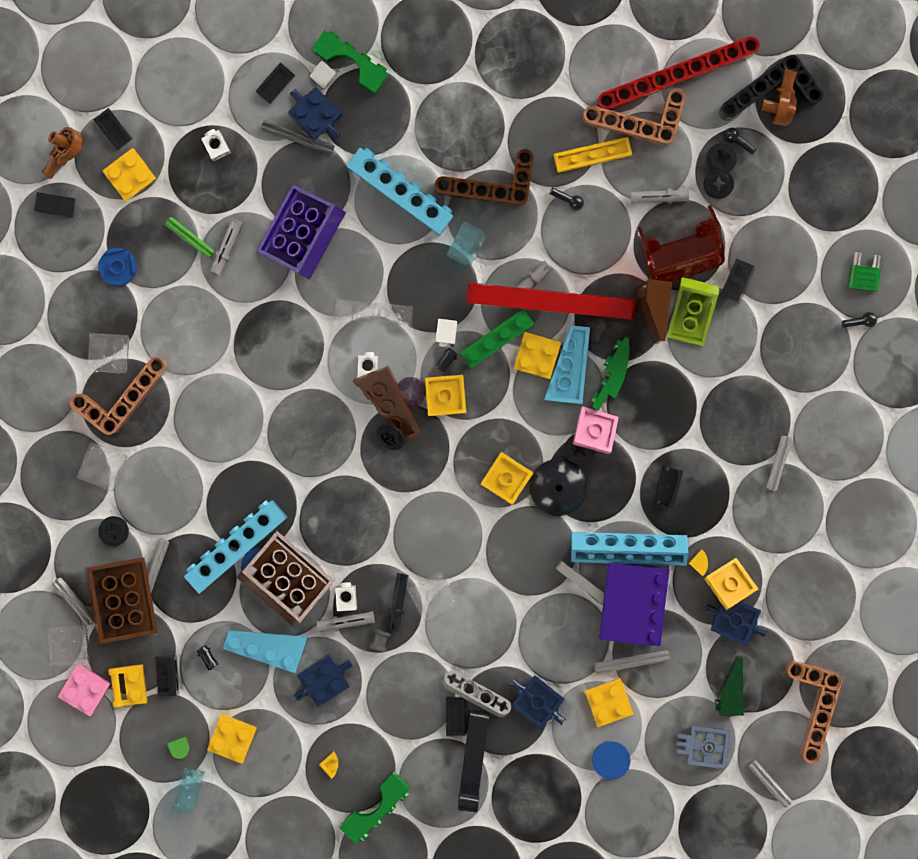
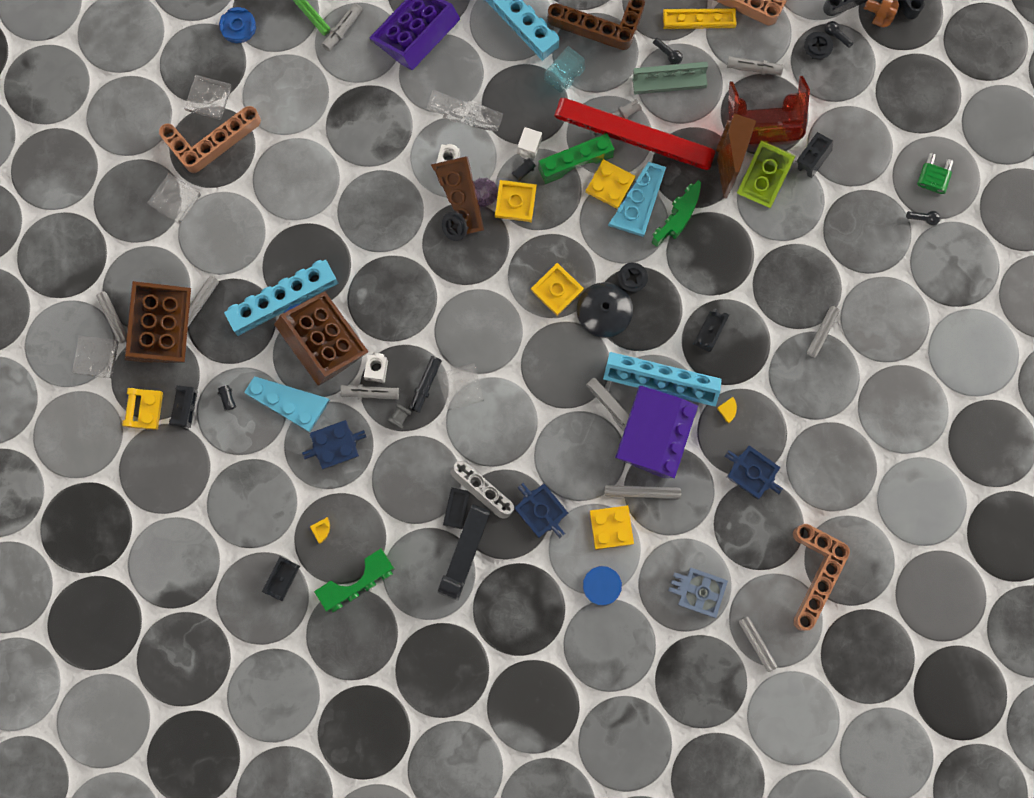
camera: 10 degrees right, 10 degrees down
(84, 690) = (99, 404): bright pink plate -> none
(108, 538) = (164, 253): black gear -> none
(179, 748) = (176, 480): bright green tile -> none
(189, 789) = (174, 522): clear light blue brick -> none
(232, 738) = (230, 482): yellow plate -> none
(304, 820) = (281, 578): none -> black hinge
(575, 230) = (669, 78): none -> sand green fence
(595, 430) = (652, 261): bright pink plate -> none
(725, 189) = (819, 59): black gear -> none
(730, 697) = (736, 543): dark green slope -> none
(731, 583) = (756, 434): yellow plate -> none

